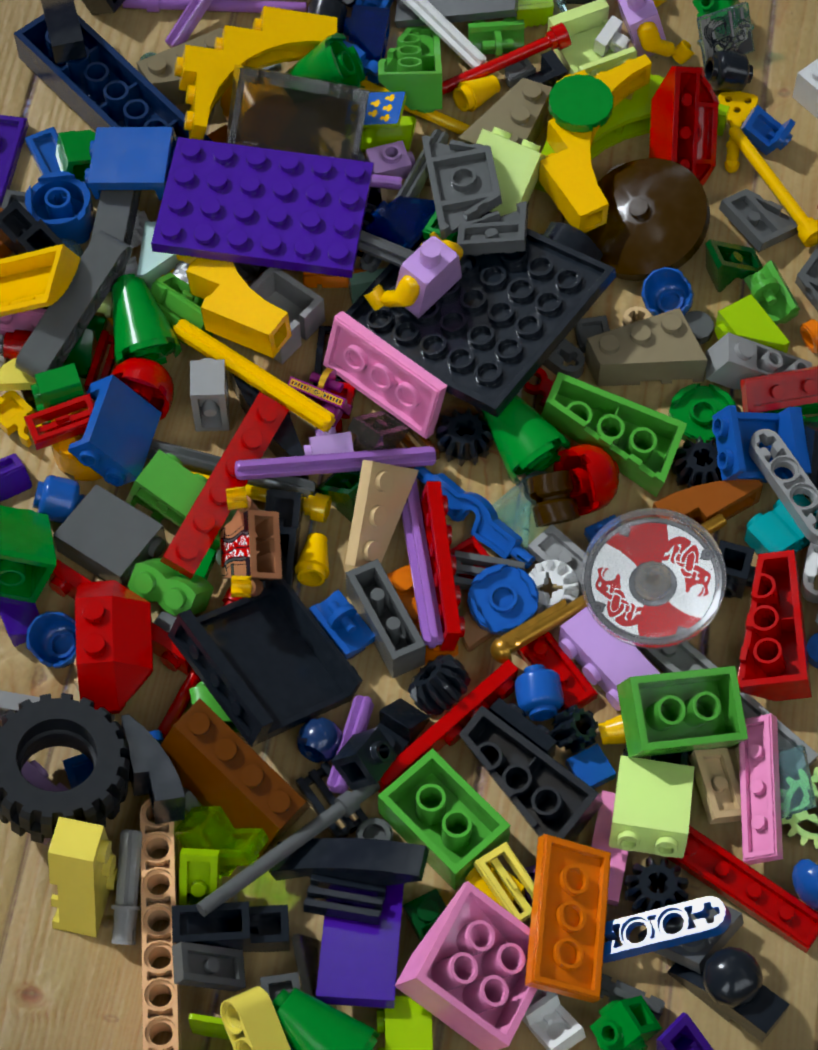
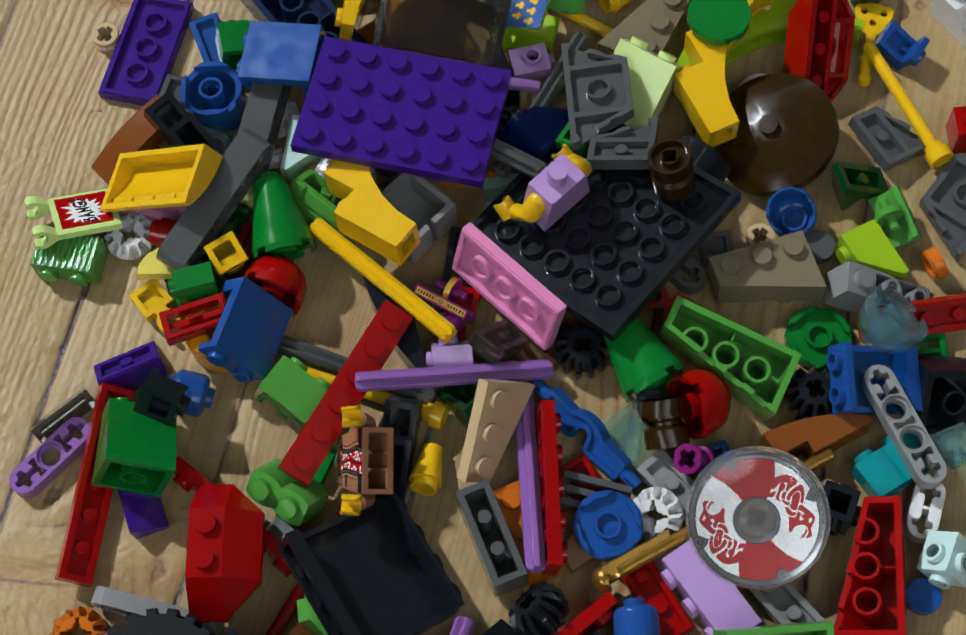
camera: 10 degrees right, 5 degrees up
(34, 499) = (162, 398): none -> black brick
(53, 639) = (168, 538): blue hair -> none
(89, 358) = (227, 254): none -> yellow brick
(109, 536) = (234, 435): dark grey brick -> none
(209, 395) = (339, 295): light grey brick -> none
(343, 624) = (449, 541): blue hips -> none
(544, 247) = (671, 169): none -> dark brown wheel
(576, 529) = (685, 456): none -> magenta bush
(772, 386) = (889, 322): none -> clear light blue cylinder

